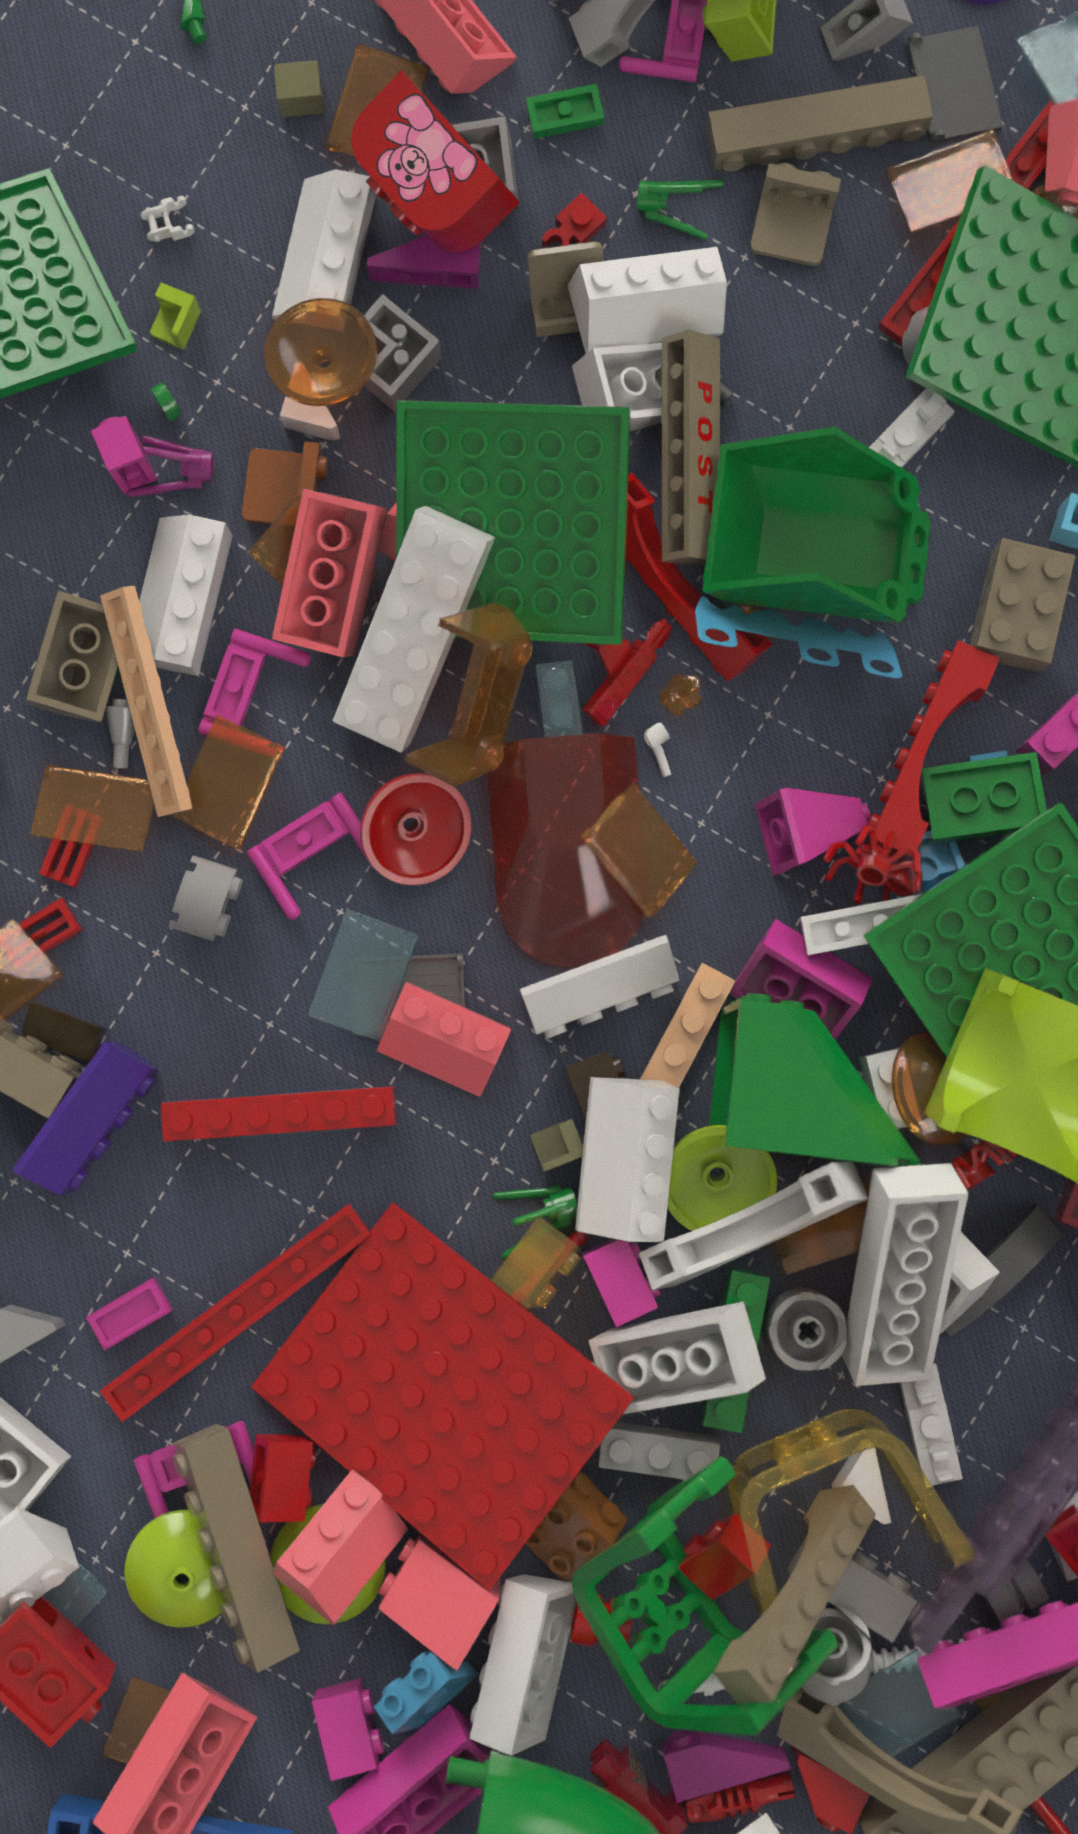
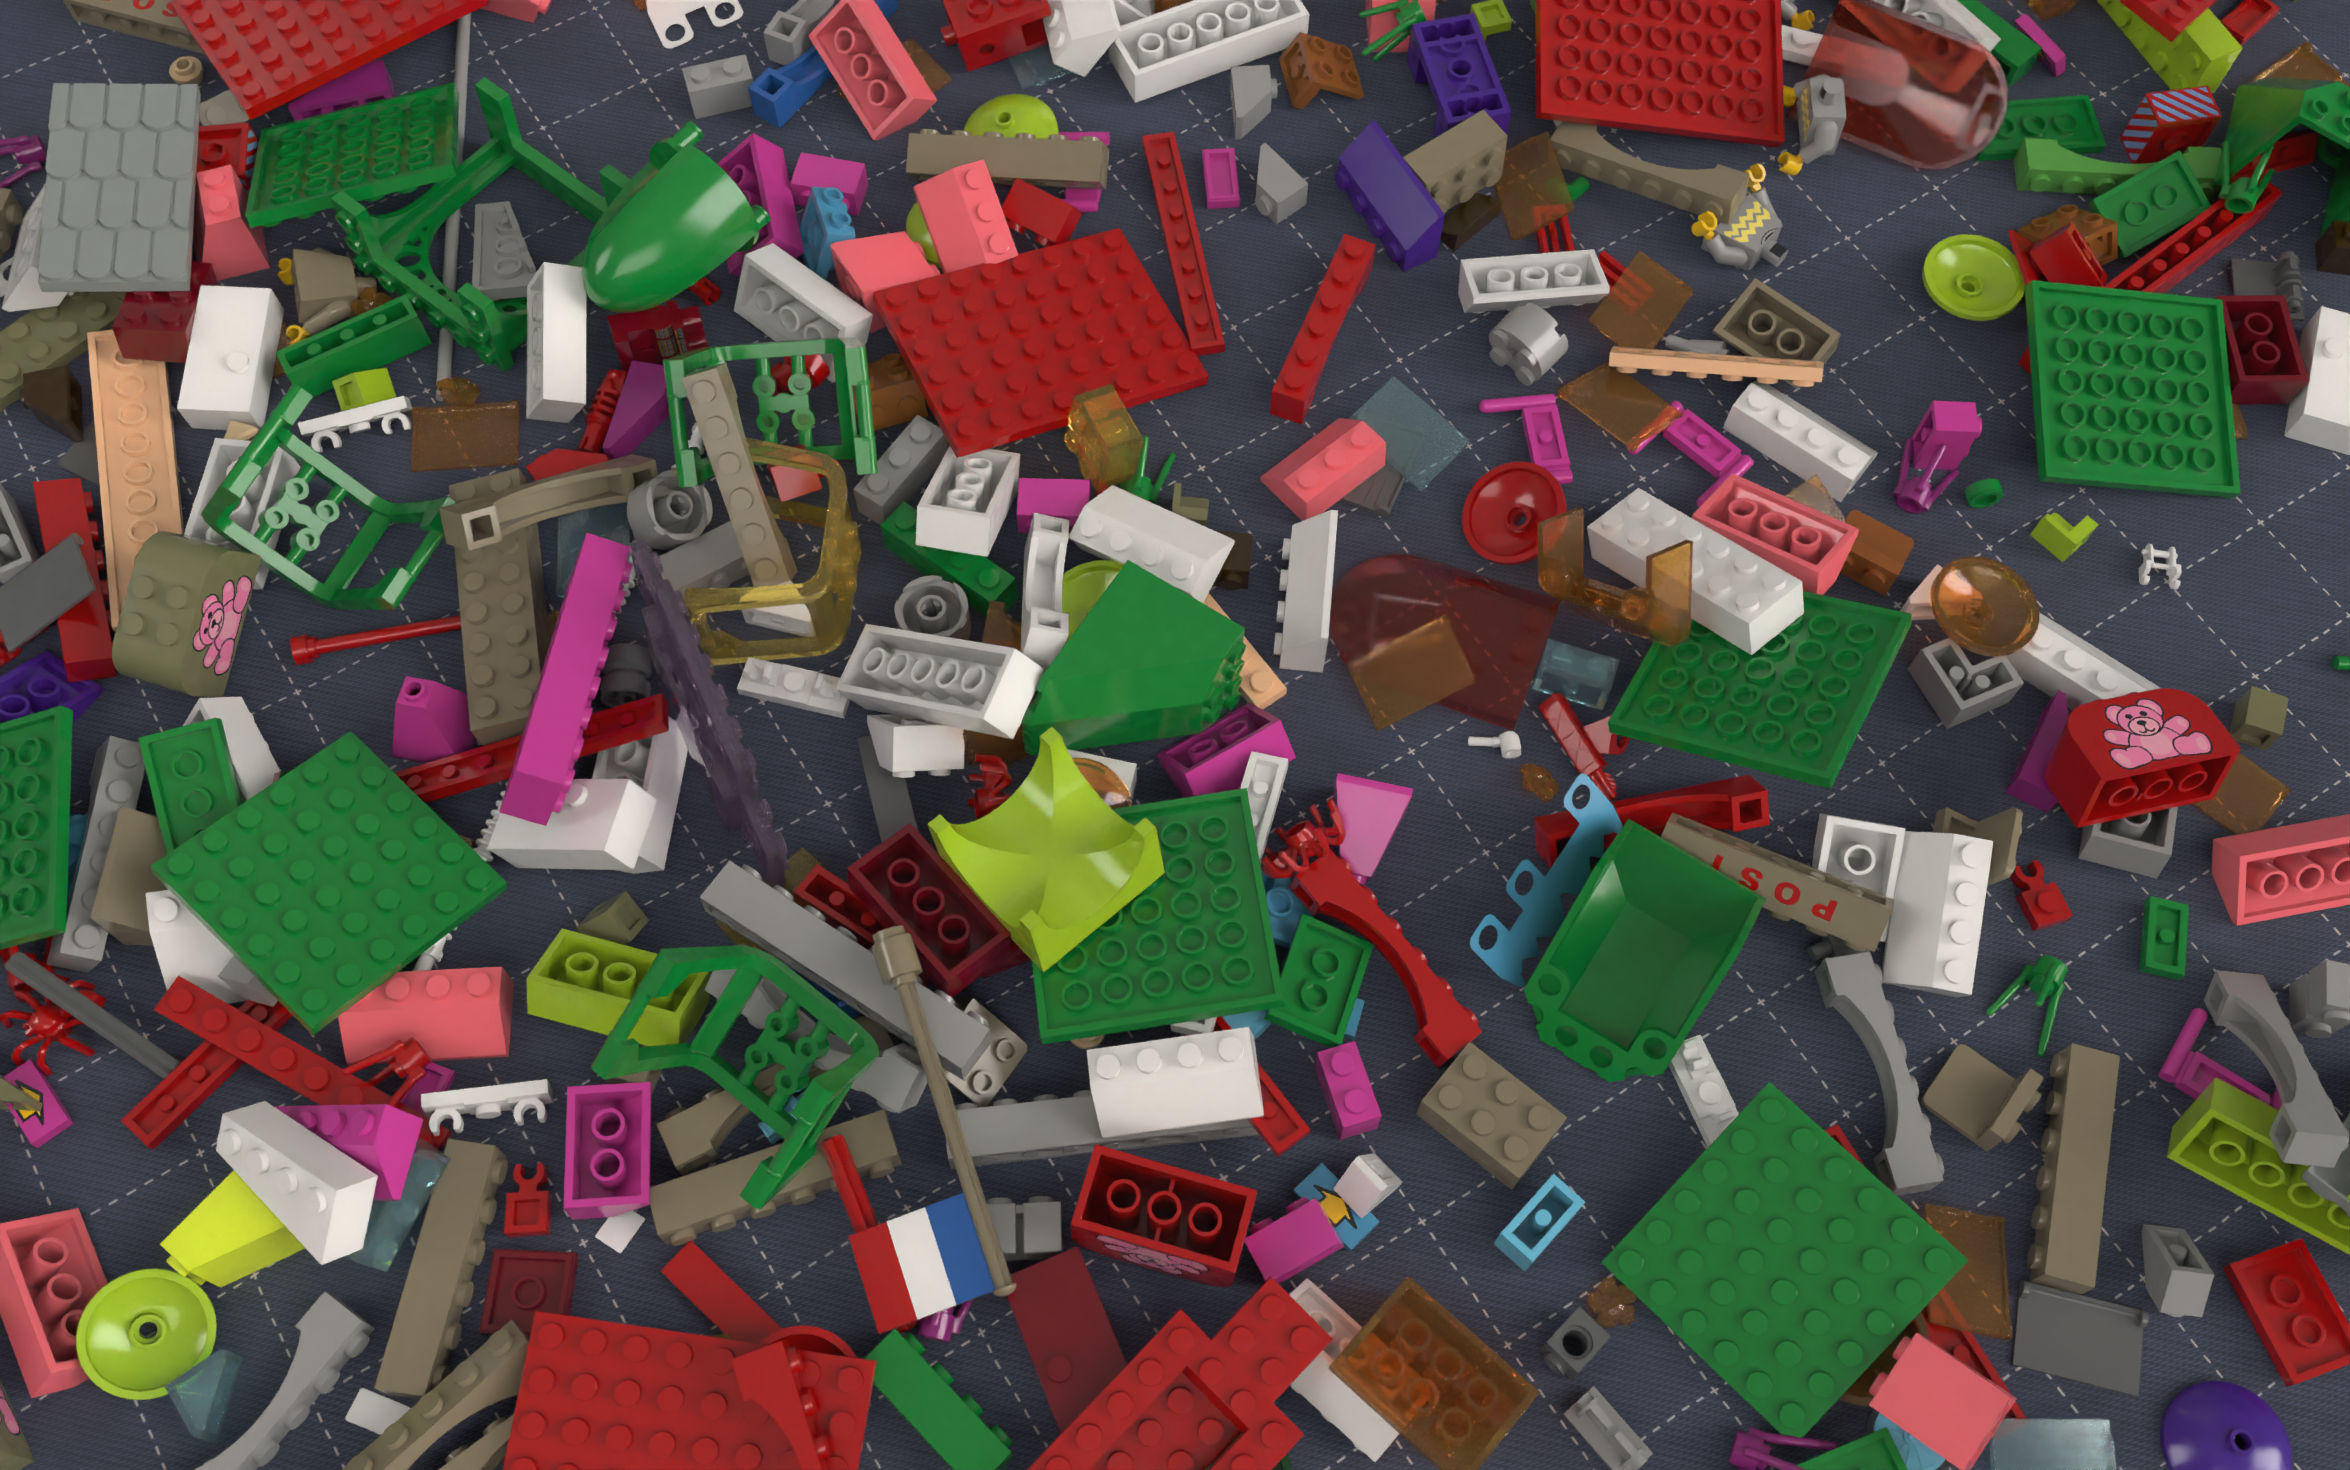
camera: 115 degrees right, 20 degrees down
(119, 1246) = (1279, 187): none -> light grey slope
(131, 922) = (1531, 278): none -> white slope
(879, 259) = (1855, 991): none -> light grey arch

